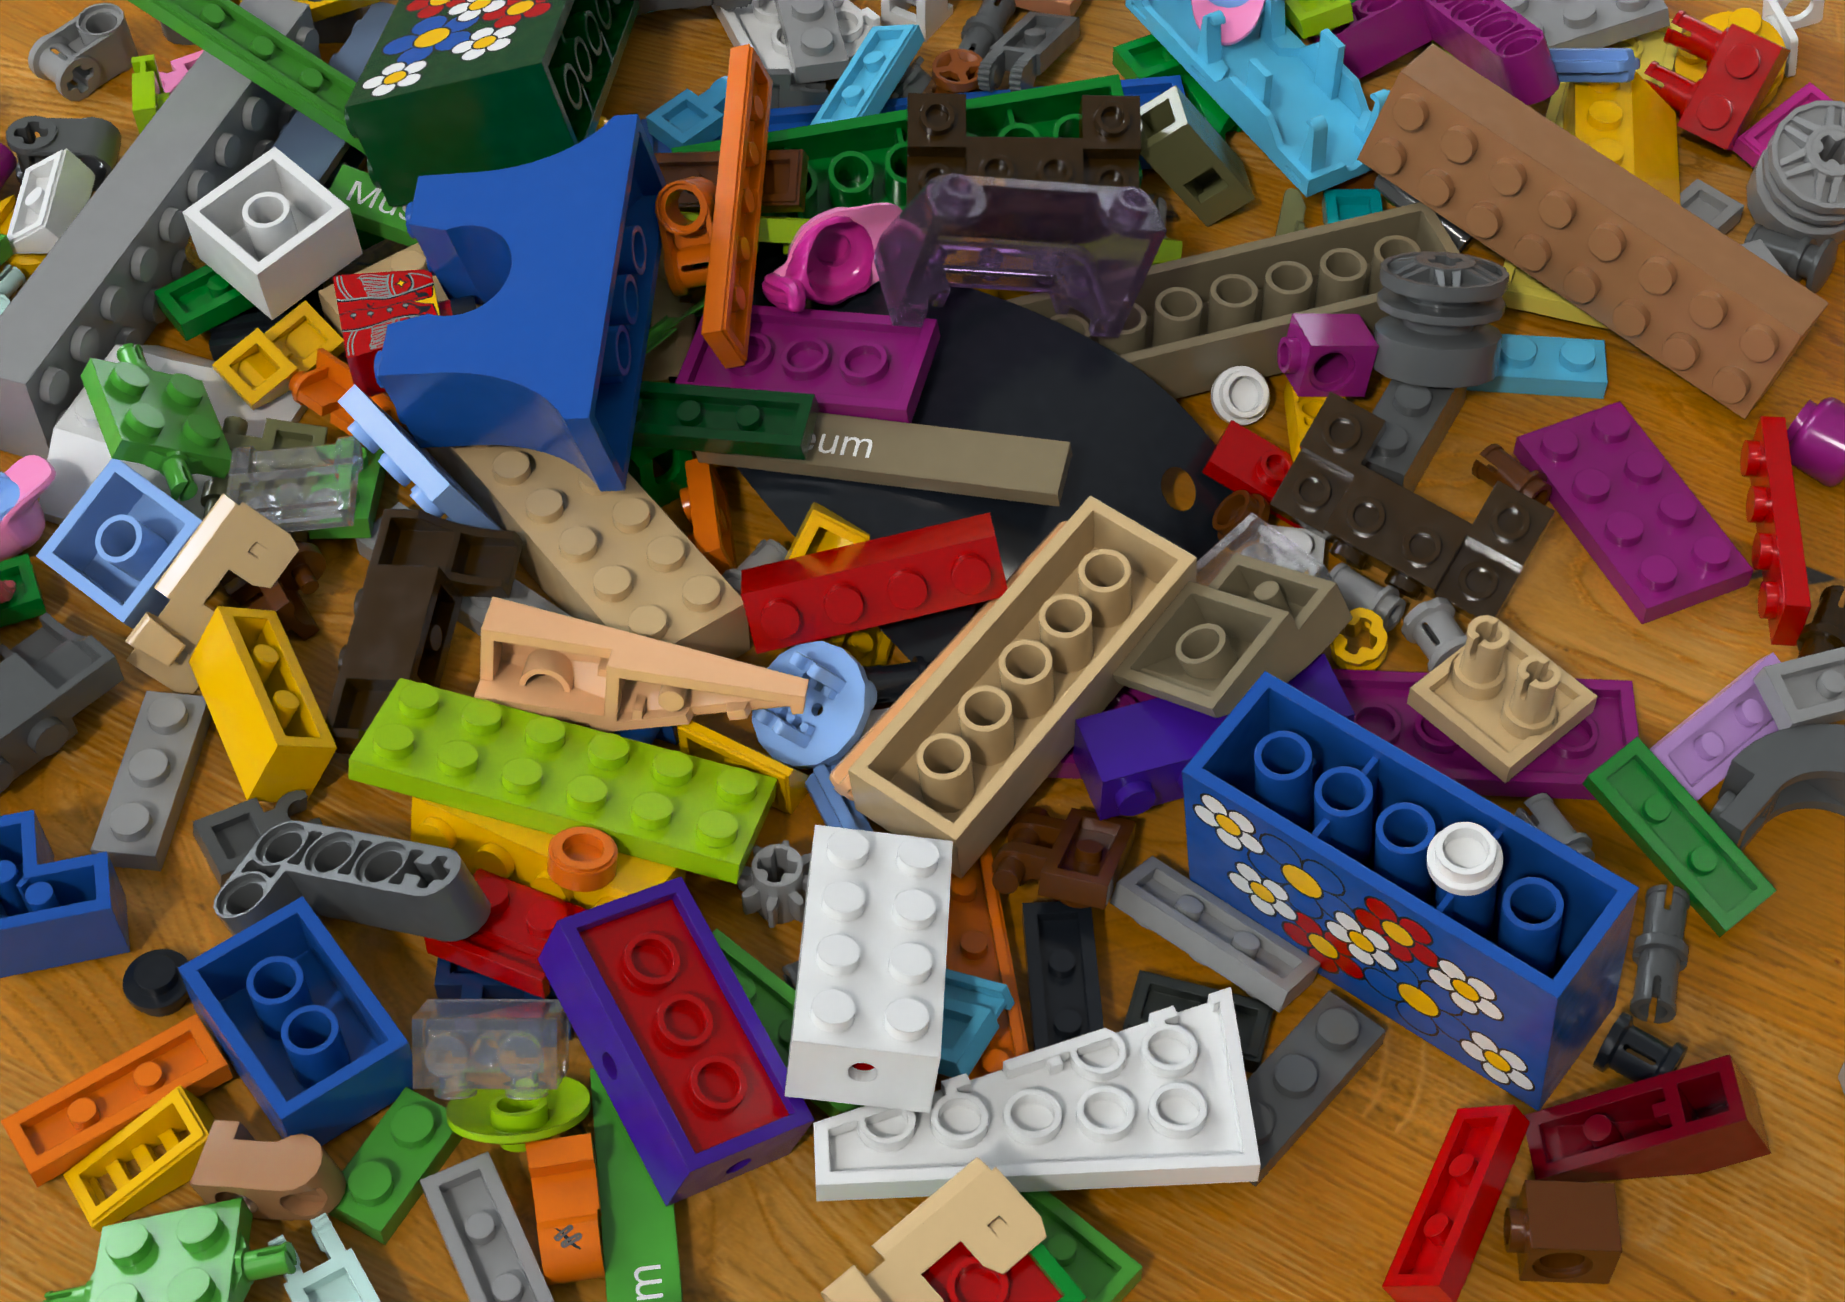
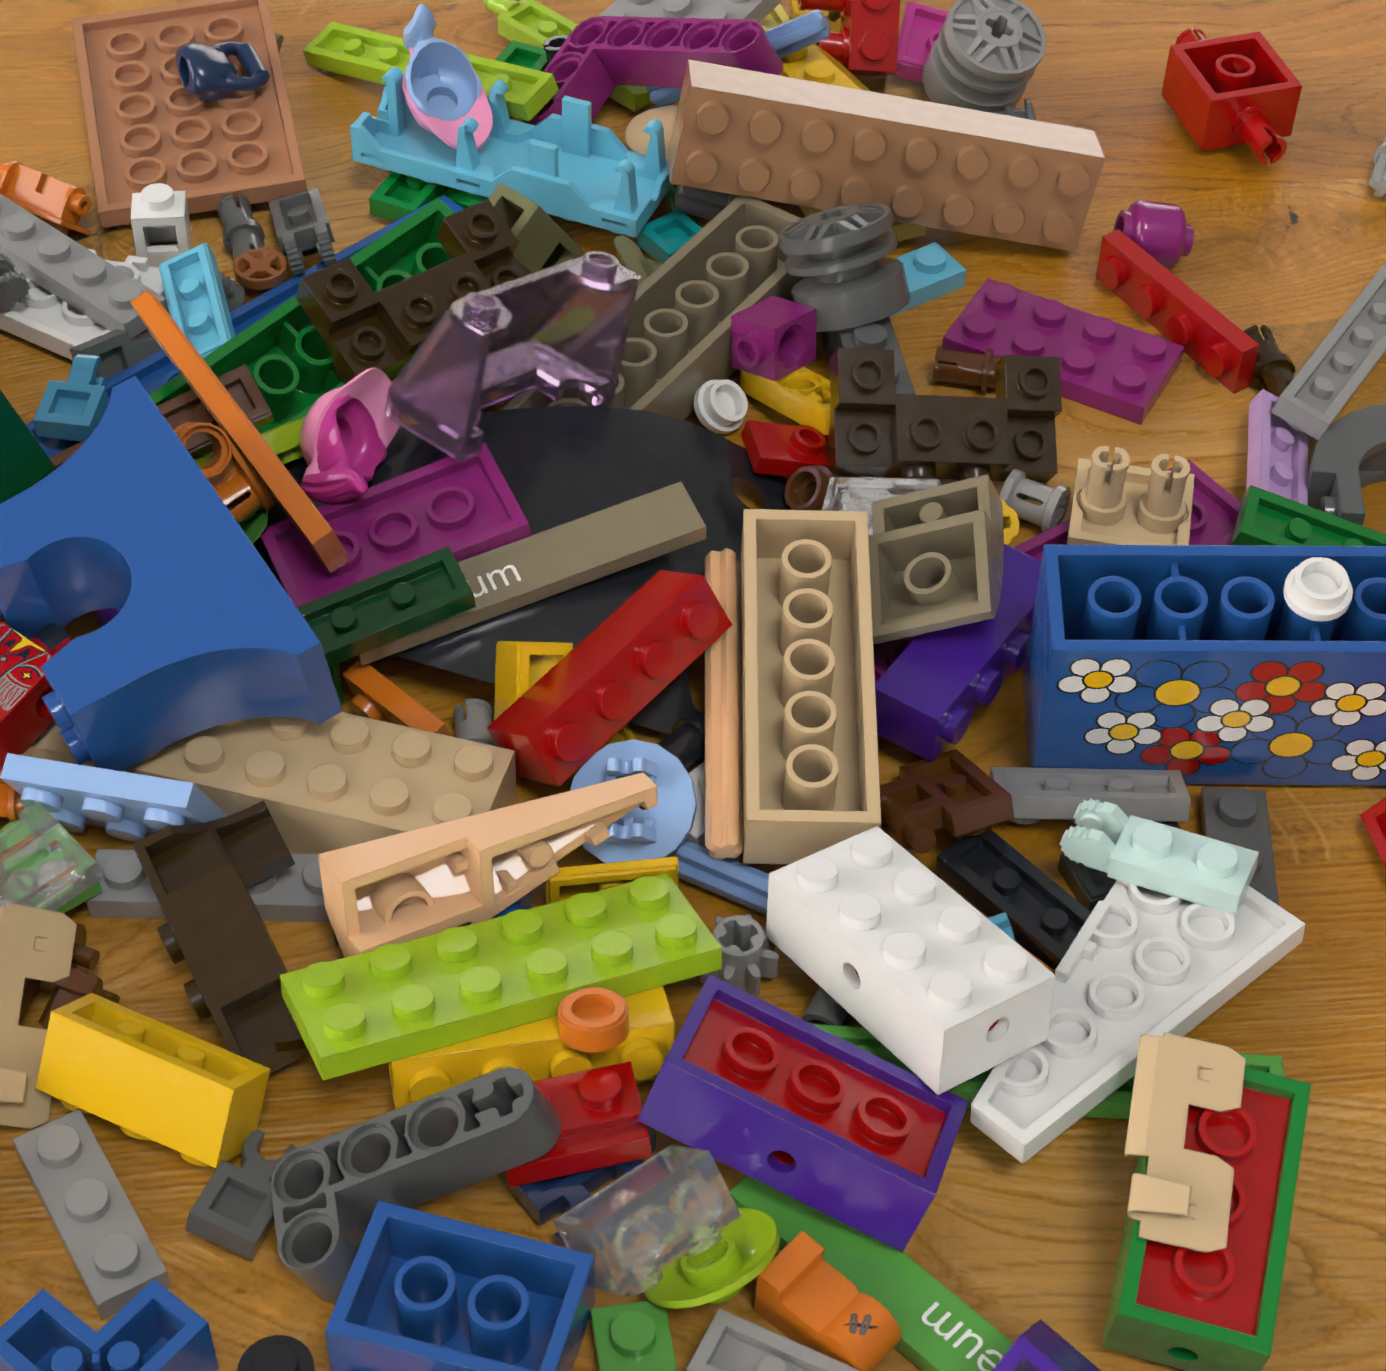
camera: 40 degrees left, 5 degrees down
(1194, 1027) = (1159, 856): none -> light aqua hinge

